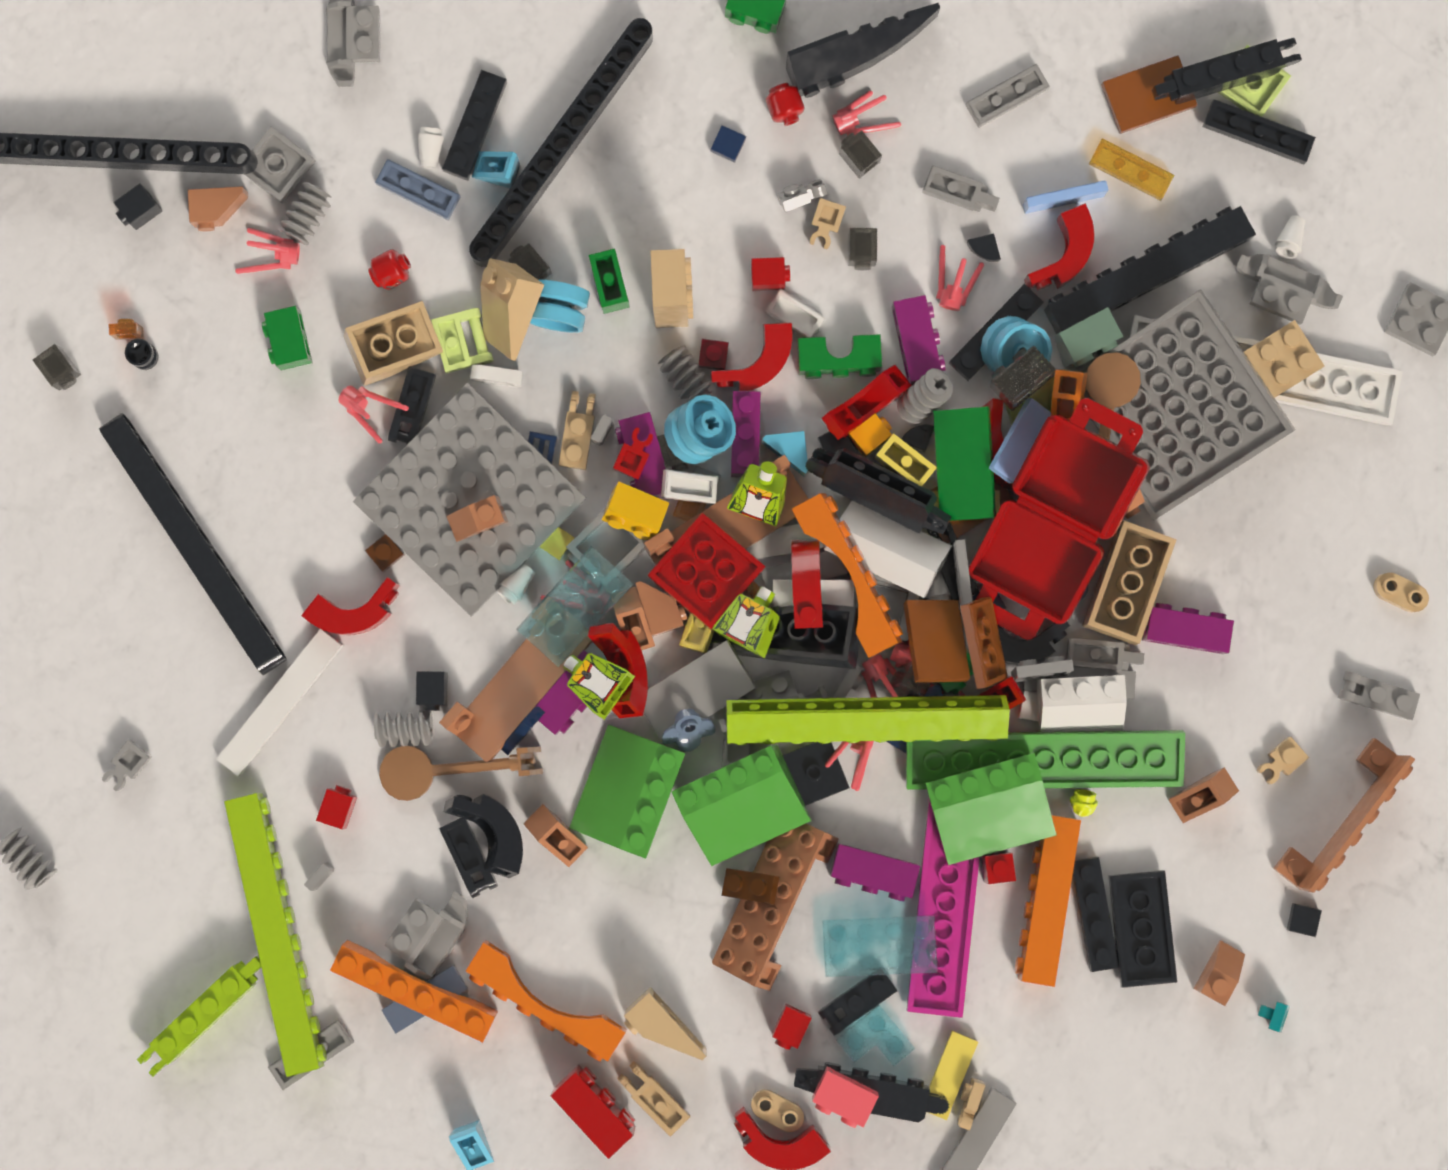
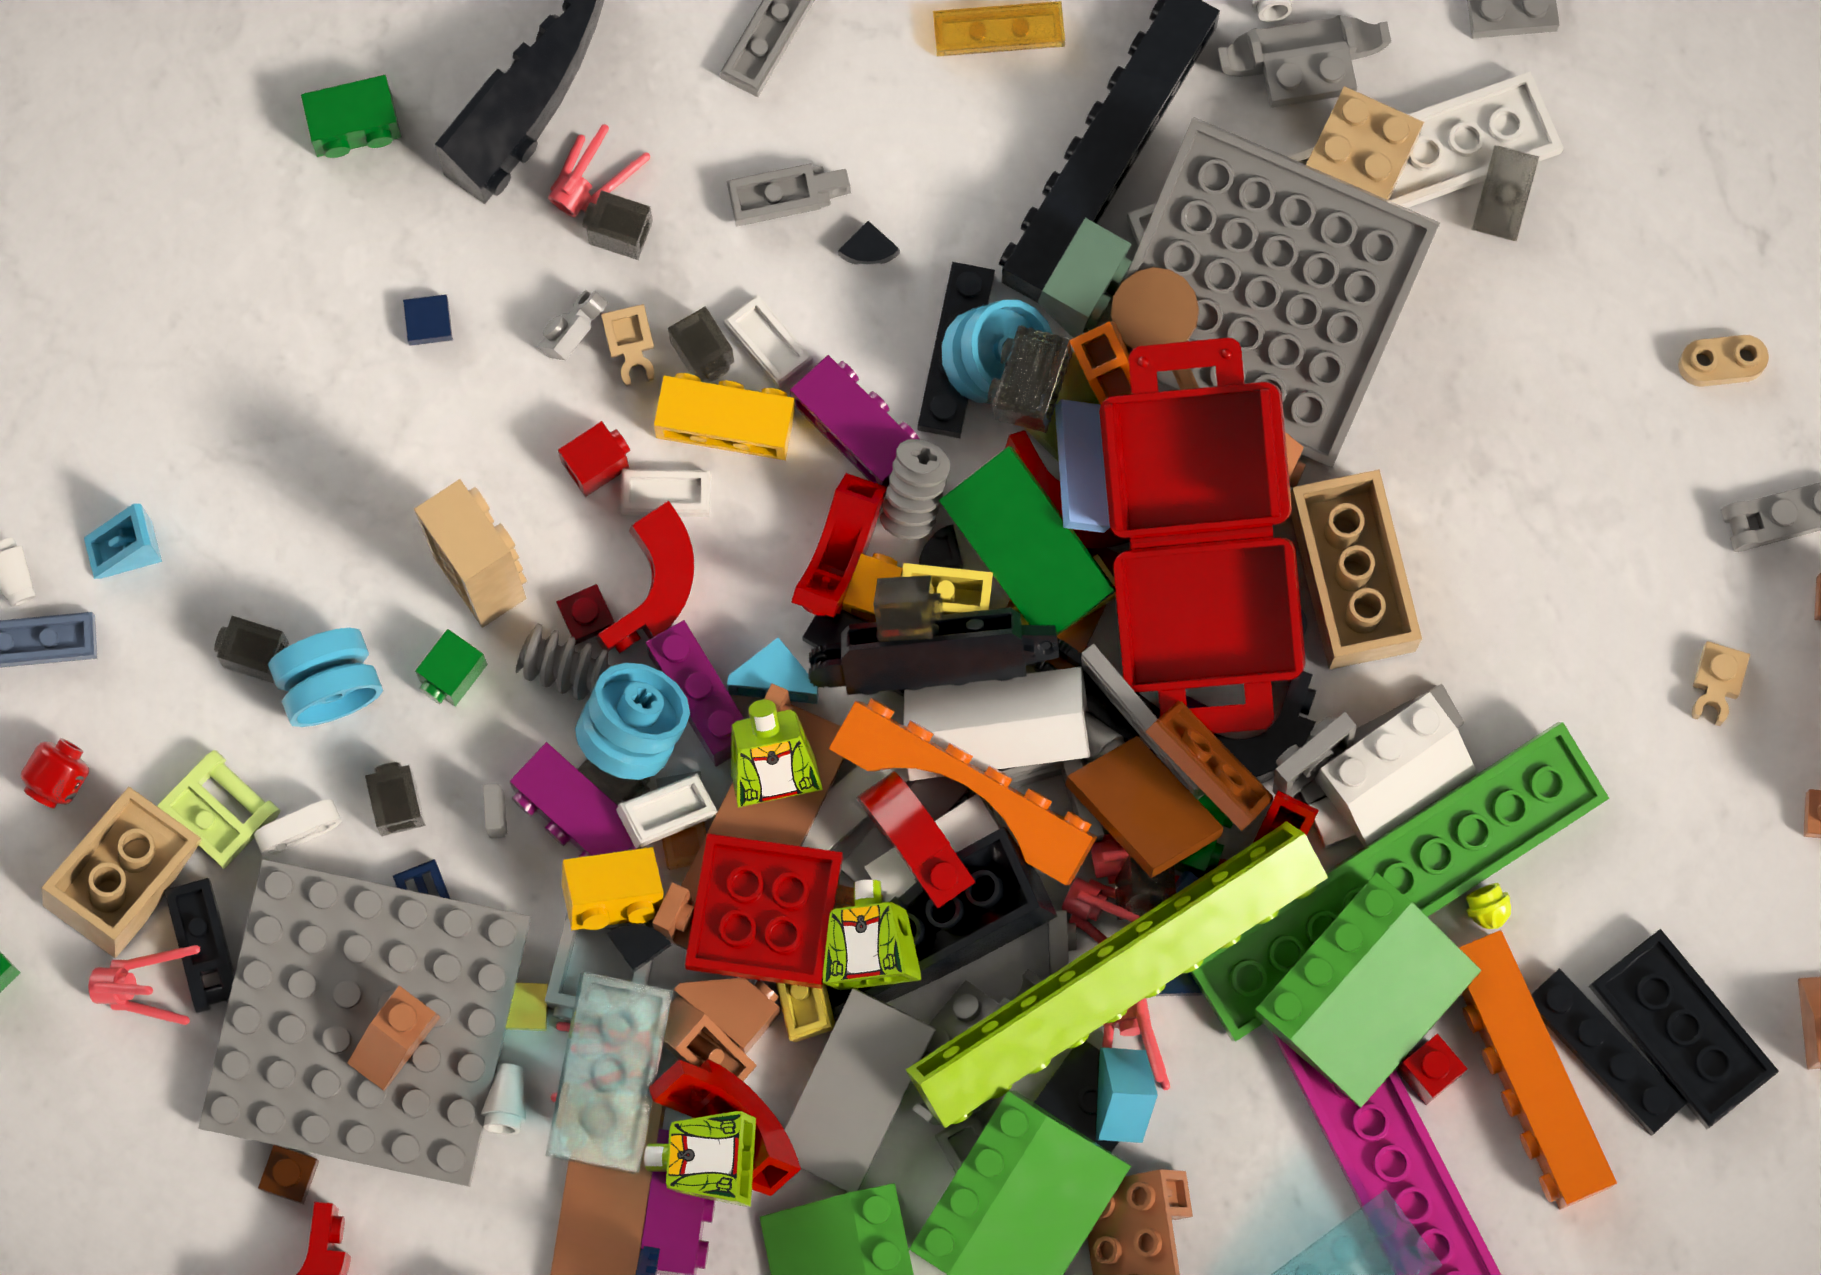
camera: 30 degrees left, 10 degrees down
(474, 125) = (55, 506): black plate -> none
(507, 305) = (256, 717): tan slope -> none
(555, 391) = (394, 798): none -> clear smoke brick
(563, 129) = (198, 475): black beam -> none
(577, 434) = (463, 839): tan hinge -> none
(609, 281) = (377, 600): green brick -> none
(624, 340) = (450, 669): none -> green brick
(631, 548) = (638, 944): none -> black tile
(633, 458) = (562, 819): red plate -> none
(688, 730) = (878, 1150): sand blue plate -> none
(785, 104) = (473, 220): red head -> none
(816, 360) = (734, 534): green arch -> none
(832, 781) = (1124, 1095): none -> medium azure slope
(851, 293) = (724, 416): none -> yellow brick
(874, 872) = (1265, 1185): magenta brick -> none
(878, 459) = (906, 608): none -> clear smoke brick
(899, 266) = (768, 341): none -> white tile
(952, 296) = (865, 337): coral plant -> none
(1065, 197) = (934, 115): light blue tile -> none
(1079, 240) = (987, 158): red arch -> none
(1102, 654) = (1383, 688): light grey hinge -> none
(1189, 629) = (1476, 582): magenta brick -> none
(1204, 795) = (1644, 793): nougat slope -> none
(1344, 430) = (1505, 193): none -> clear smoke plate

